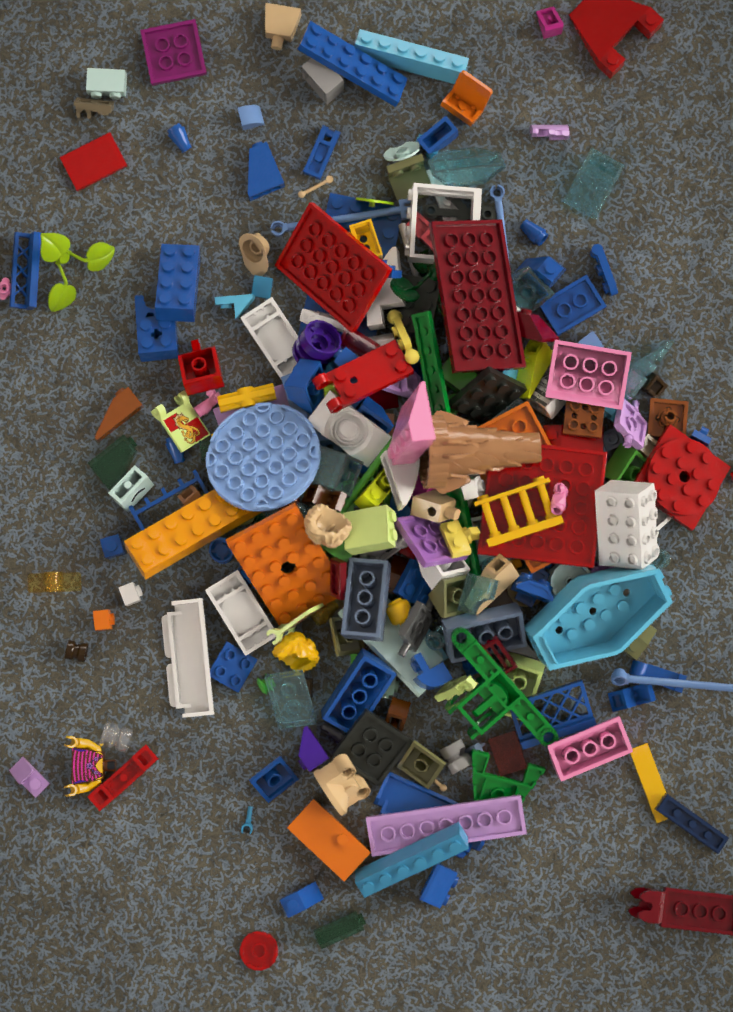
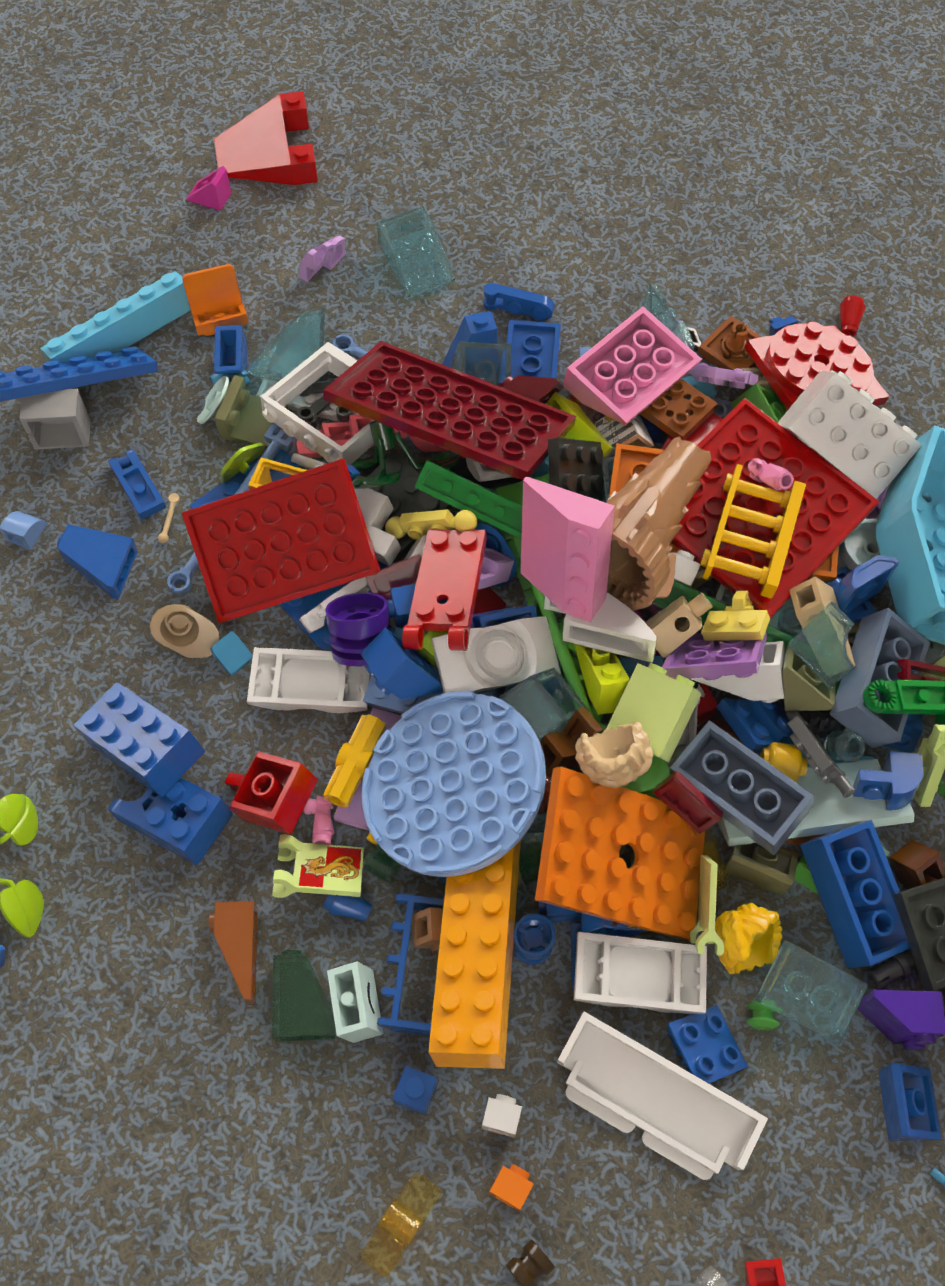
camera: 55 degrees left, 20 degrees down
(240, 303) = (226, 688): medium azure slope -> none
(534, 232) = (419, 339): blue cone -> none

